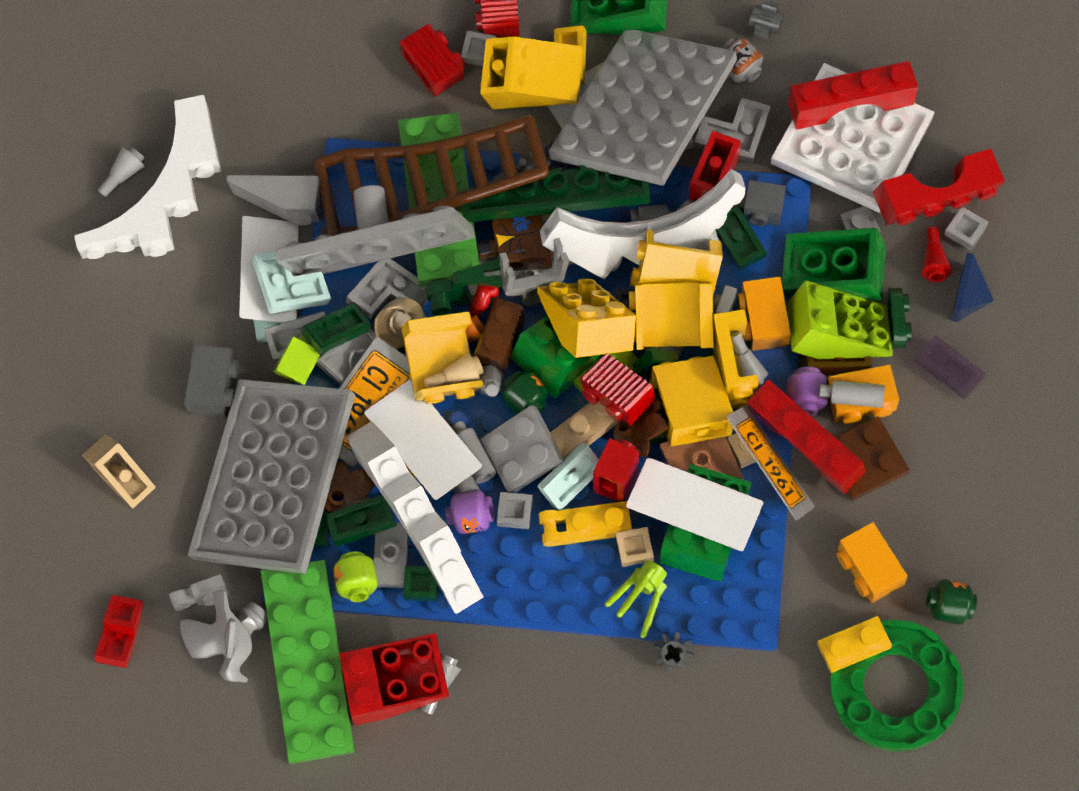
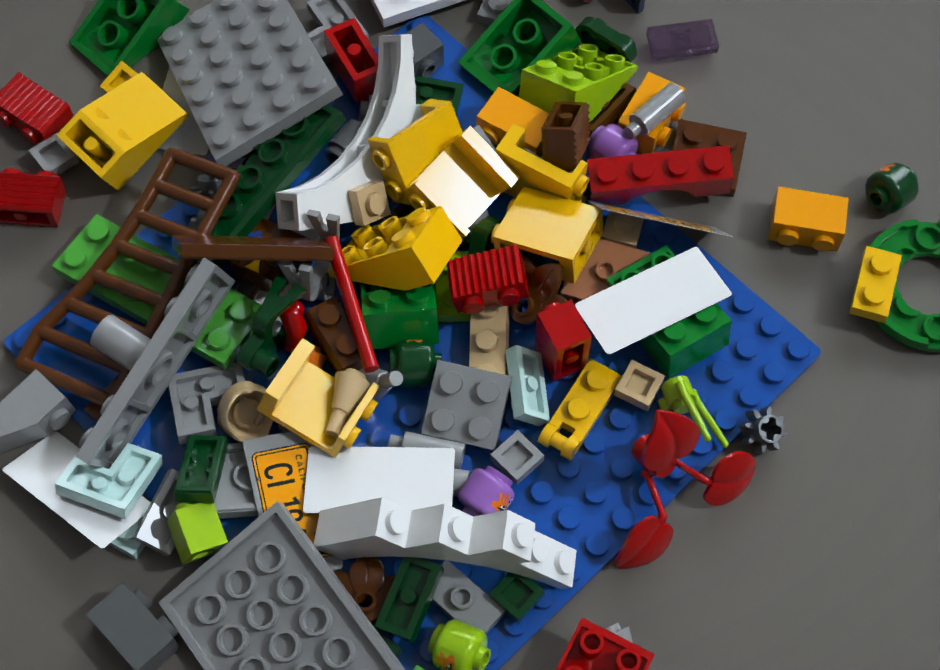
camera: 55 degrees left, 5 degrees down
(498, 227) = (252, 248): none -> reddish brown tile
(521, 320) = (352, 307): none -> red bar
(587, 593) = (658, 453): none -> red plant
(611, 269) = (369, 202): none -> tan plate
(772, 350) = (566, 134): none -> reddish brown brick

